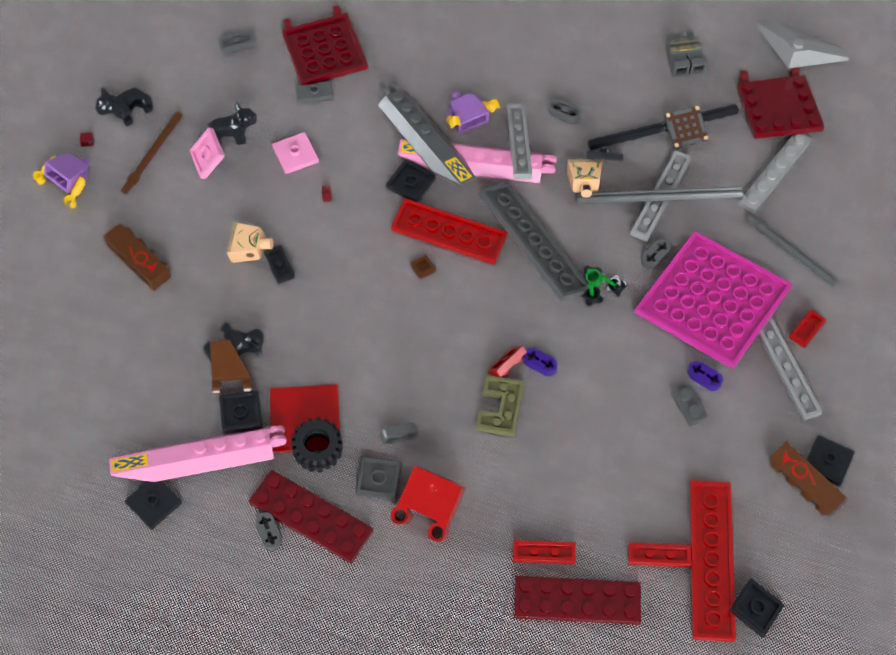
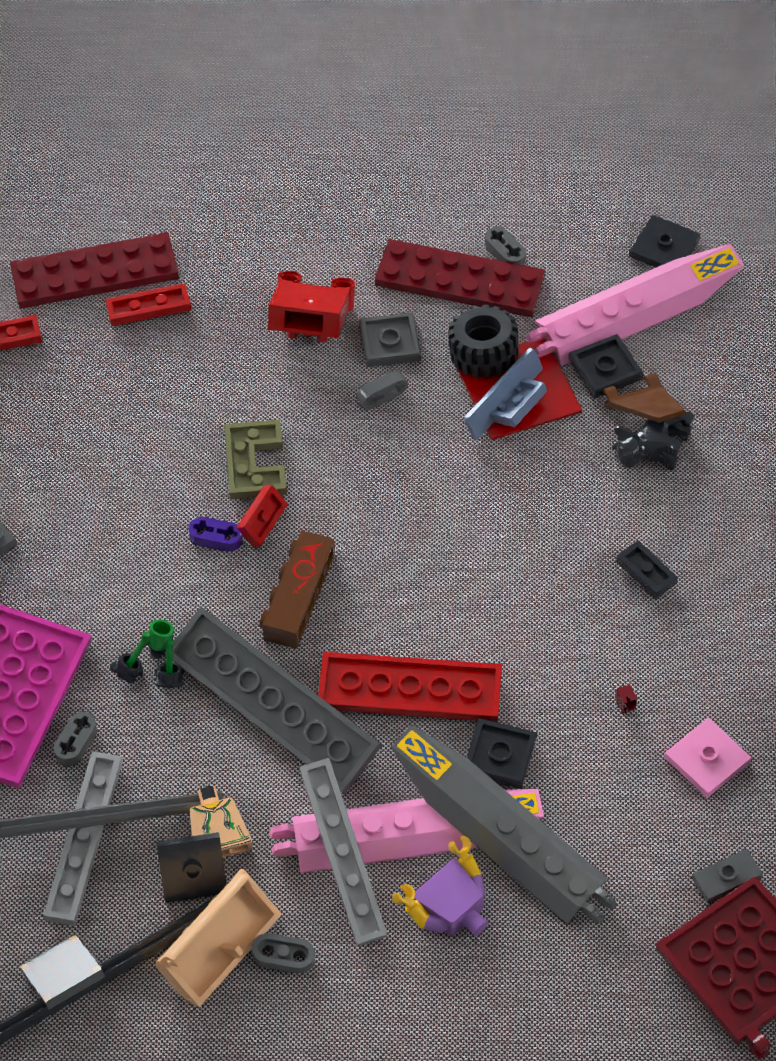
camera: 165 degrees right, 5 degrees down
(247, 243) = (707, 582): light nougat torso -> none
(313, 397) = (510, 397): none -> sand blue bracket
(422, 267) = (432, 627): reddish brown tile -> none
(497, 306) = (298, 589): none -> reddish brown brick
(598, 121) = (218, 939): none -> light nougat container

